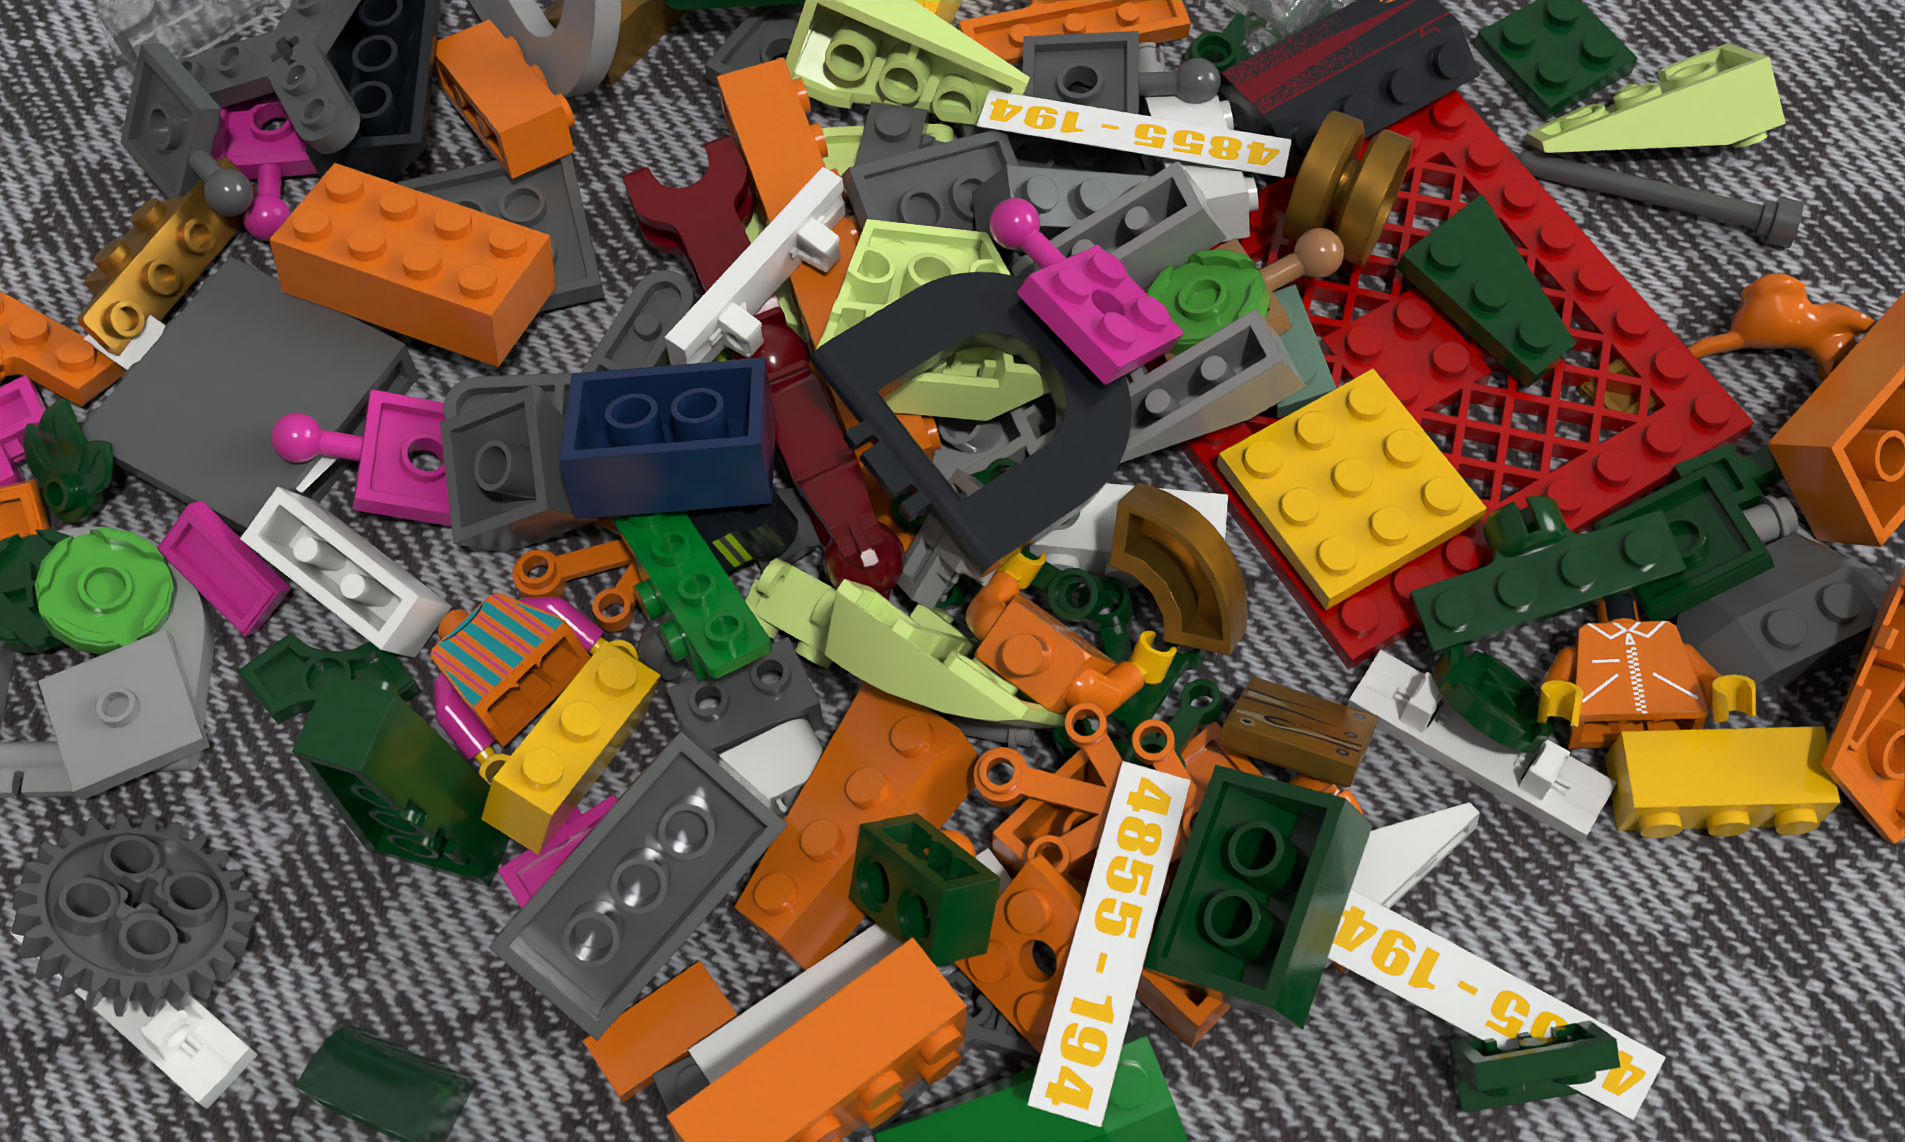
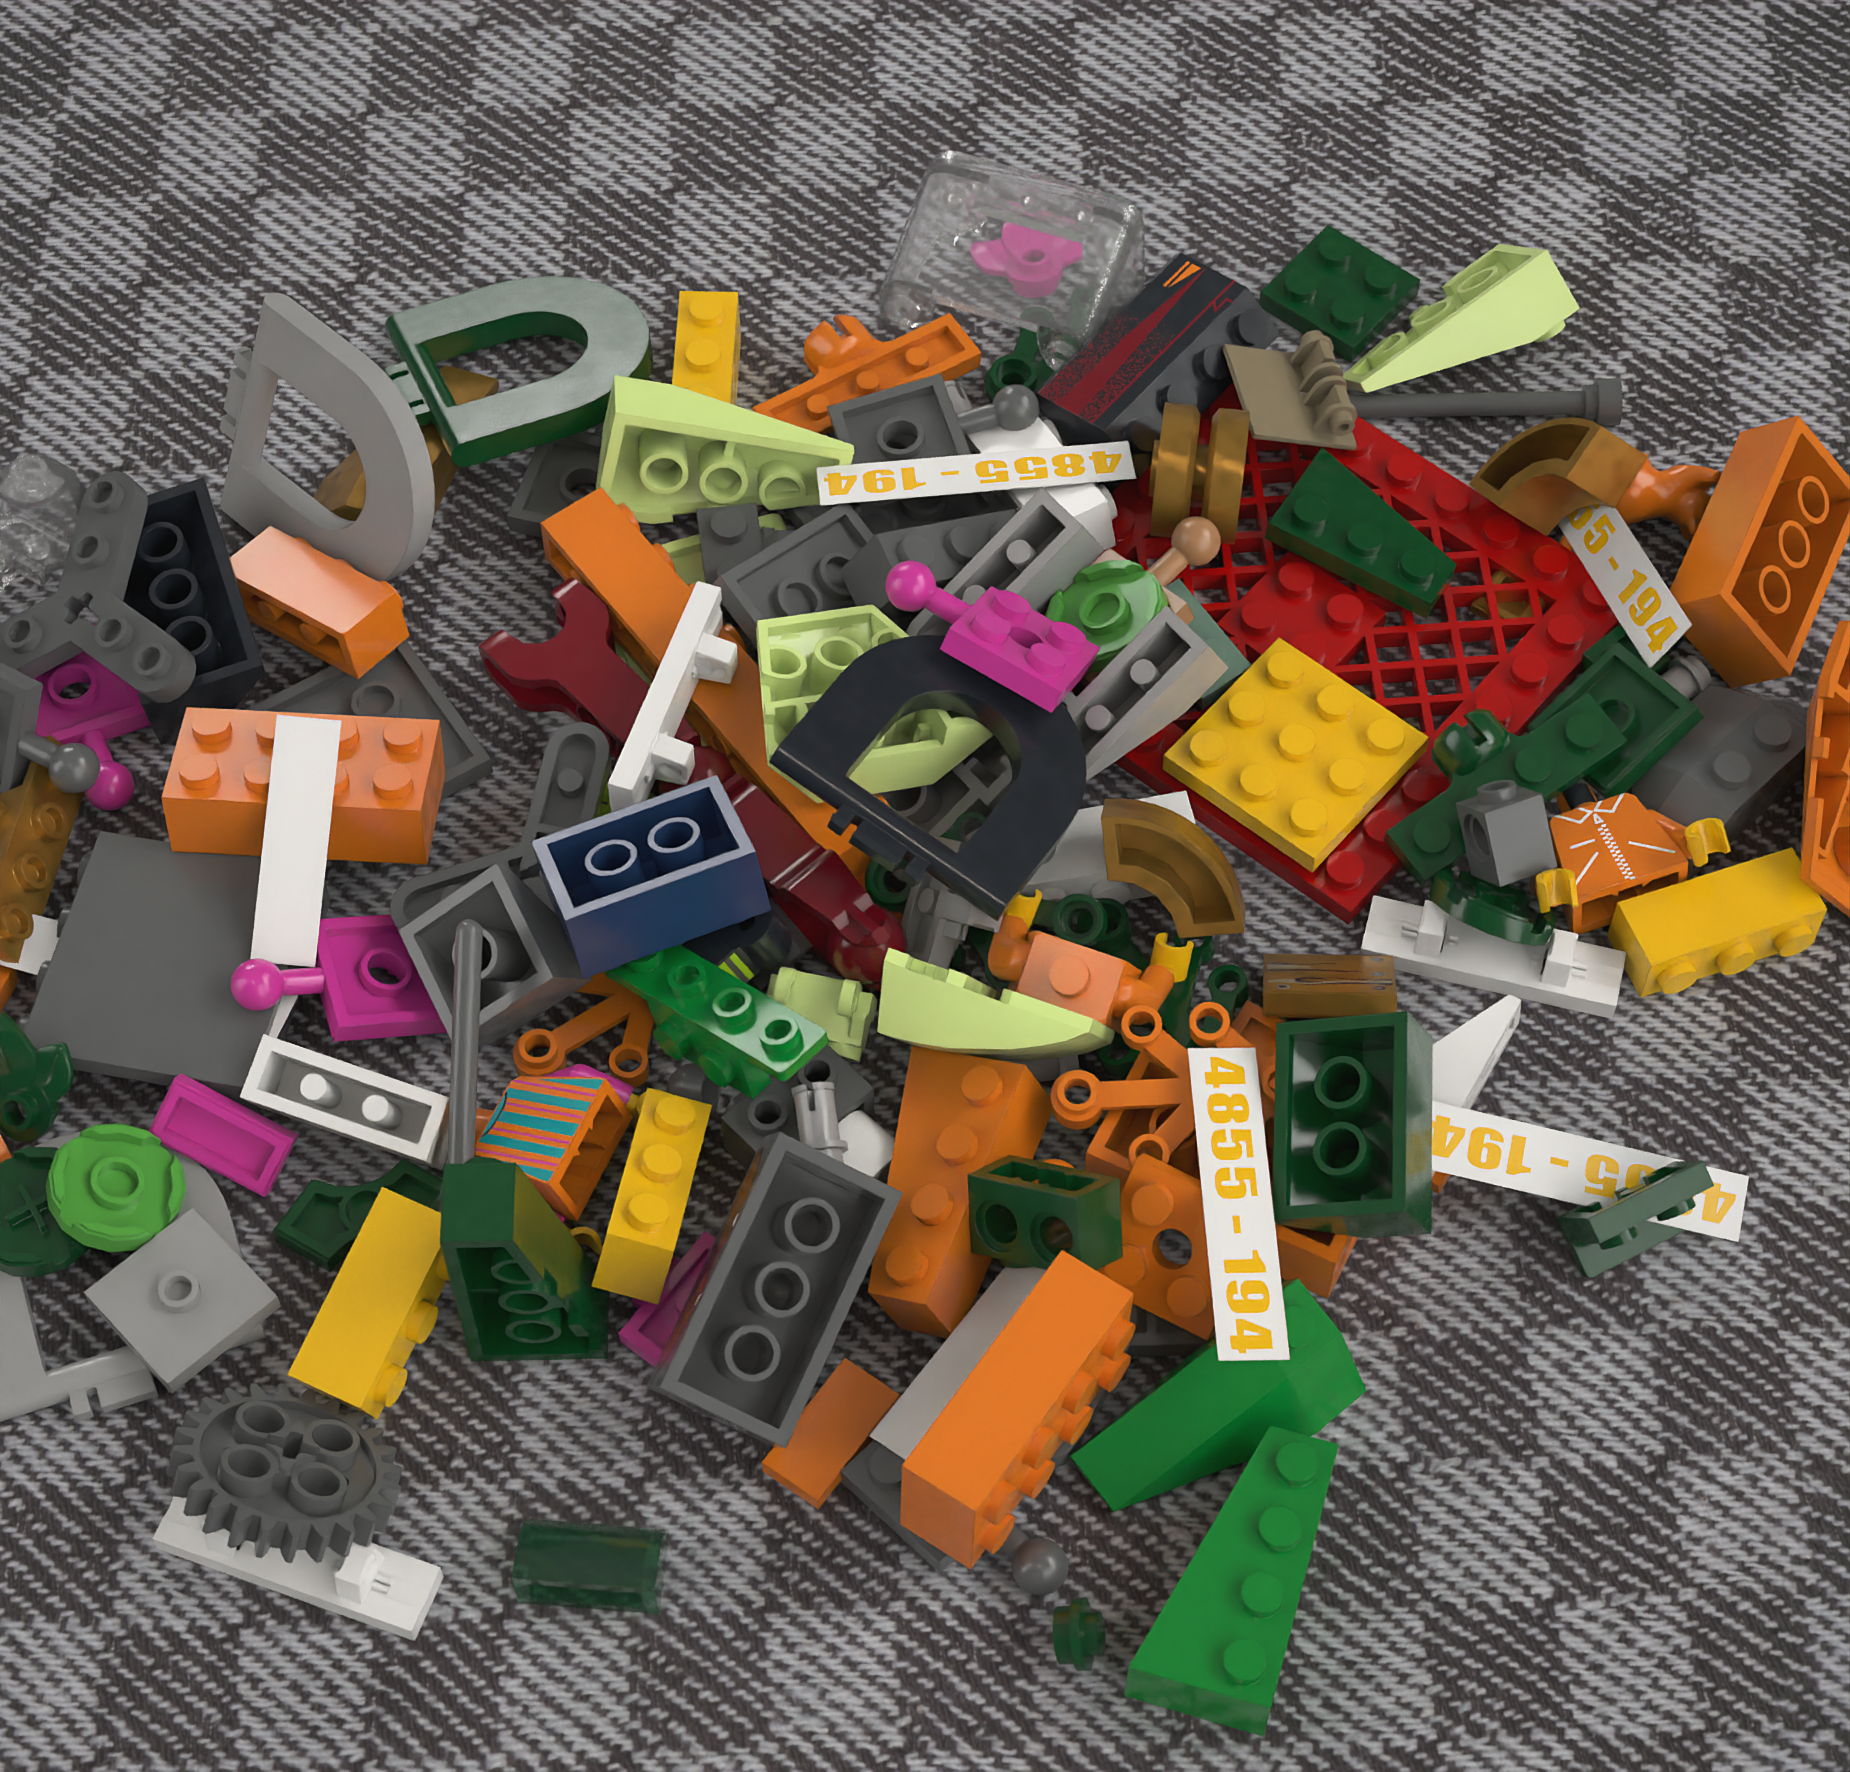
camera: 20 degrees left, 5 degrees down
(263, 795) = (376, 1307): none -> yellow brick
(373, 312) = (296, 840): none -> white sticker
(440, 570) = (464, 1042): none -> dark grey piece
(747, 727) = (819, 1125): none -> light grey pin
(1470, 135) = (1294, 394): none -> dark tan hinge
(1528, 630) = (1506, 833): none -> dark grey brick
(1708, 277) = (1557, 471): none -> pearl gold brick
(1734, 371) = (1626, 579): none -> white sticker

